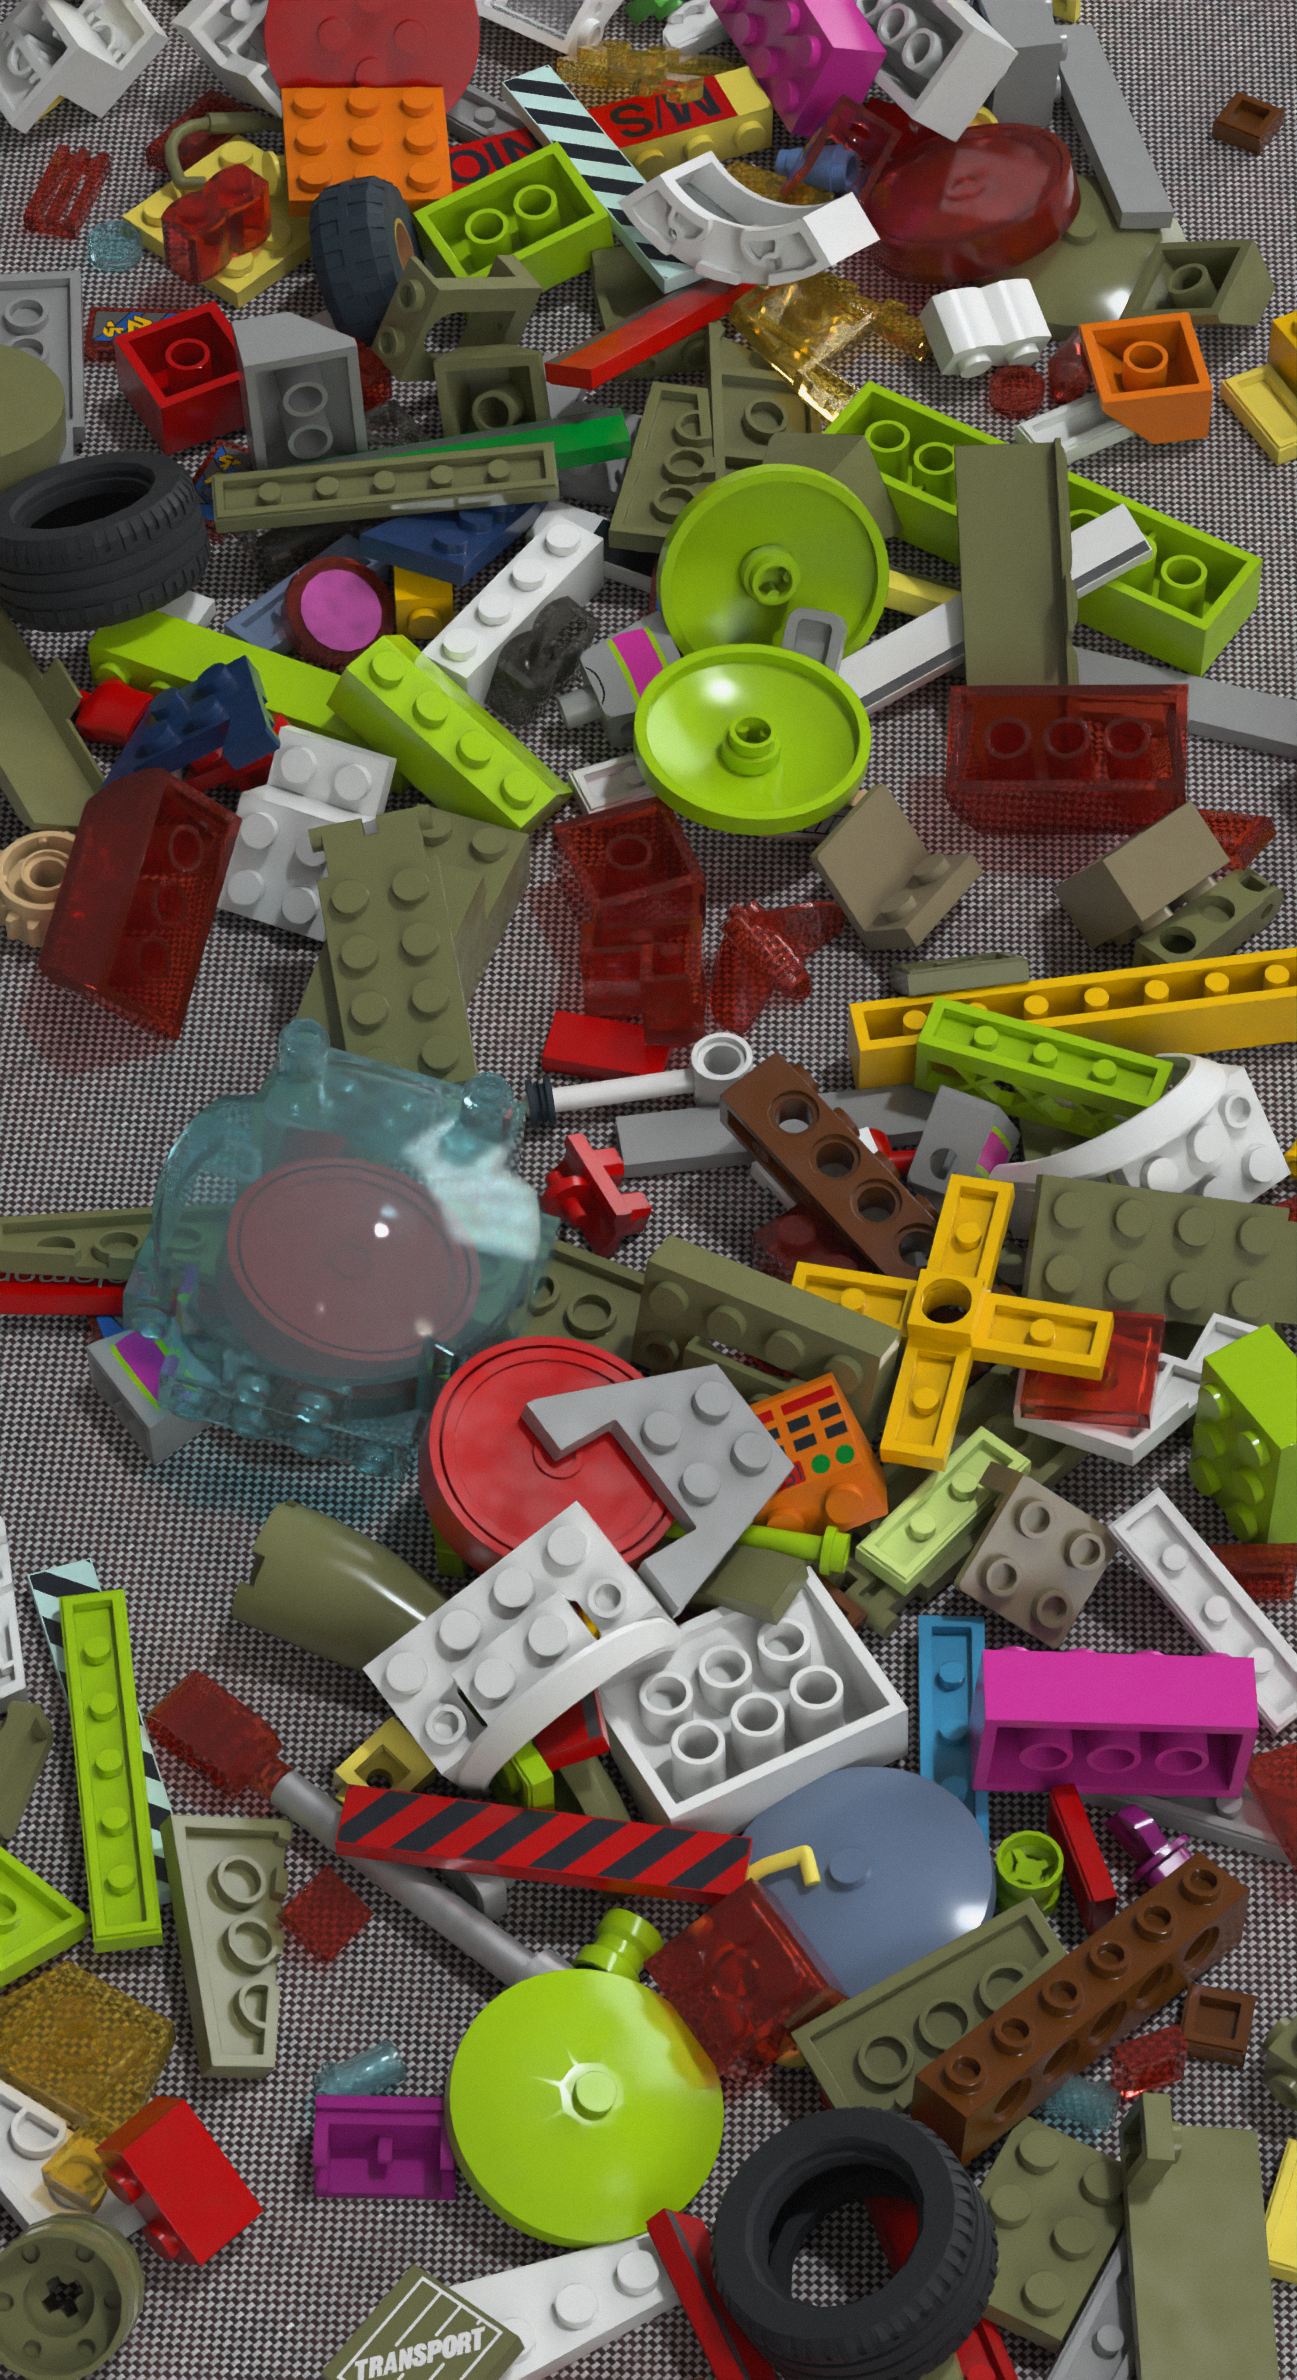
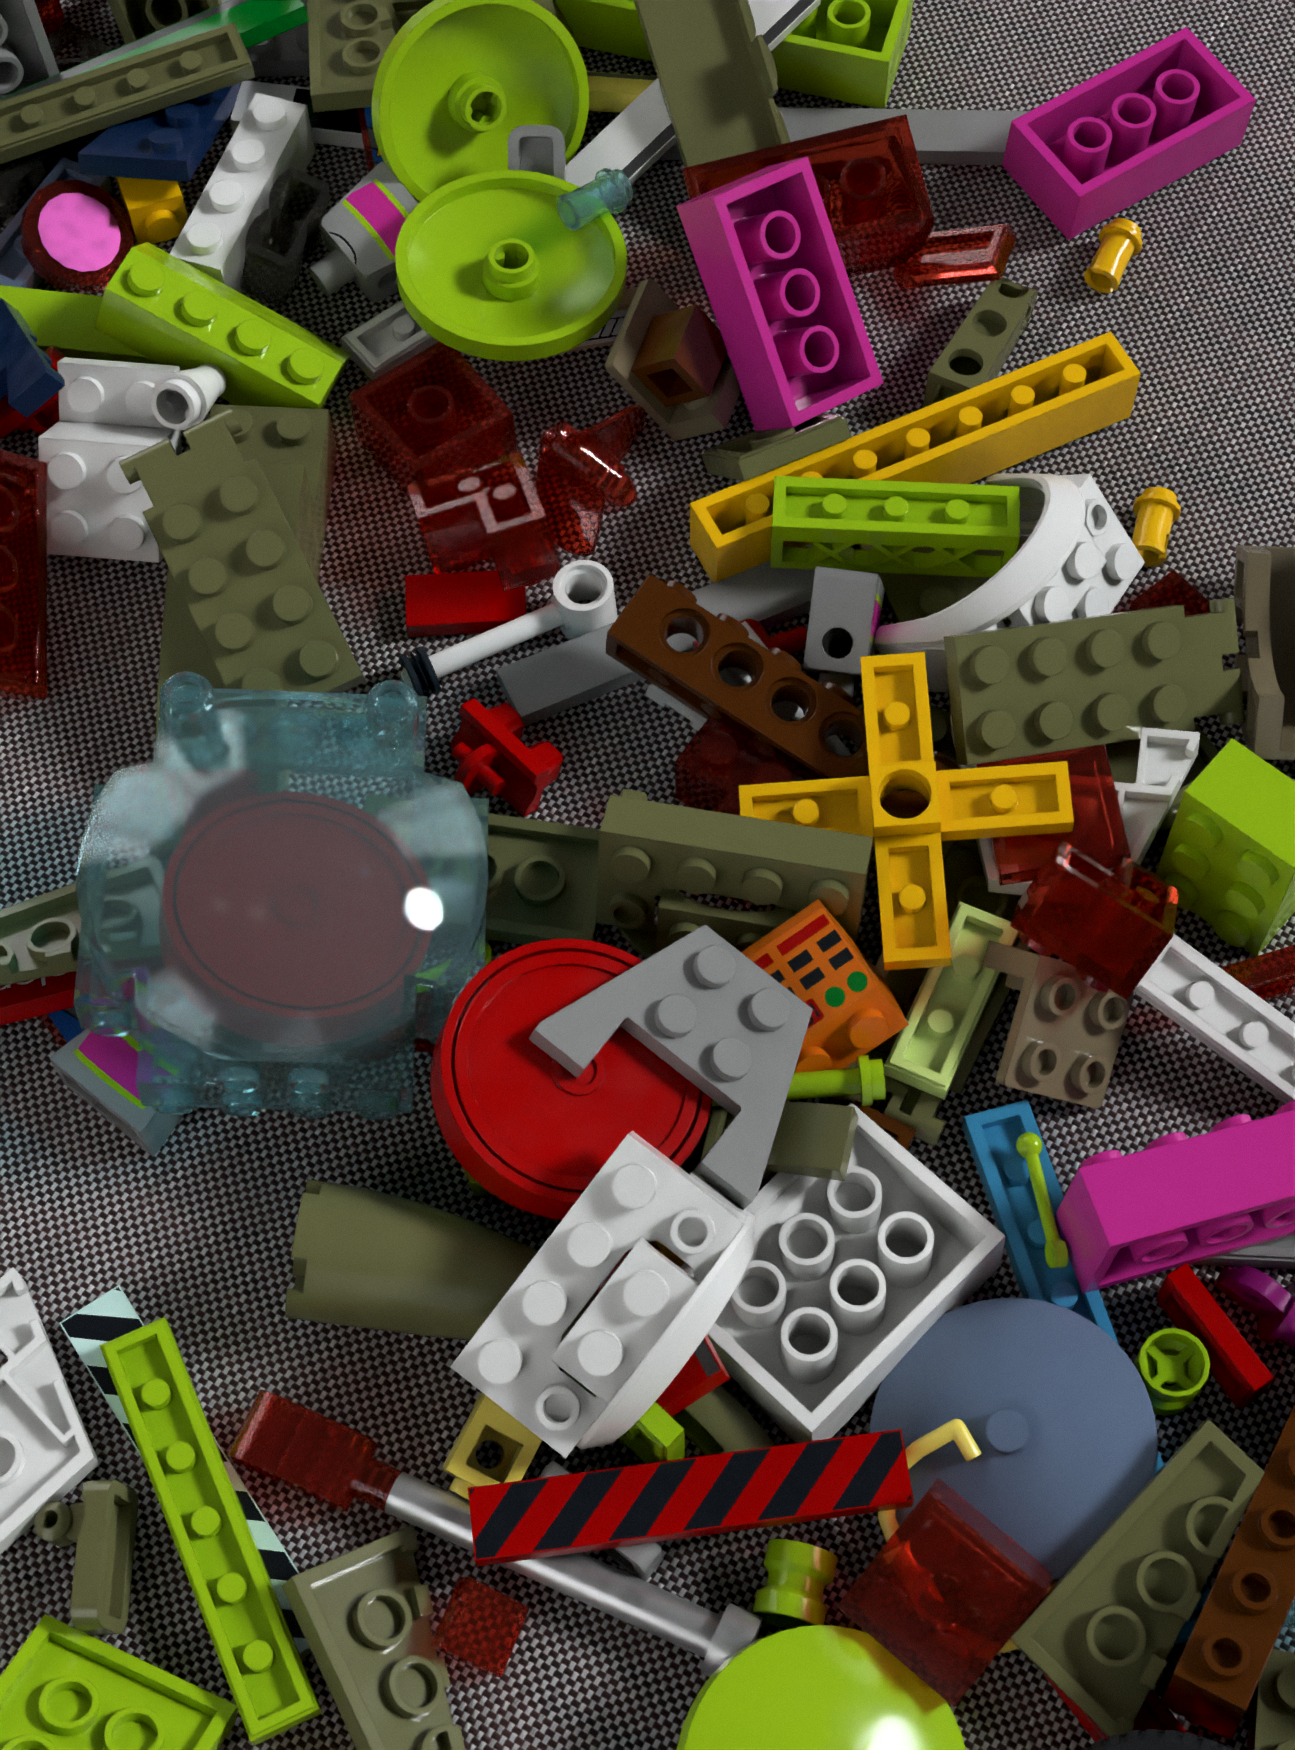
camera: 15 degrees left, 10 degrees up
(395, 786) = (187, 395): none -> white cone
(852, 695) = (606, 193): none -> clear light blue pin
(891, 865) = (680, 356): none -> reddish brown brick
(967, 1653) = (1056, 1252): none -> lime hinge
(1003, 829) = (780, 294): none -> dark pink brick
(1089, 1455) = (1098, 918): none -> clear red brick
(1143, 878) = (922, 302): dark tan brick -> none

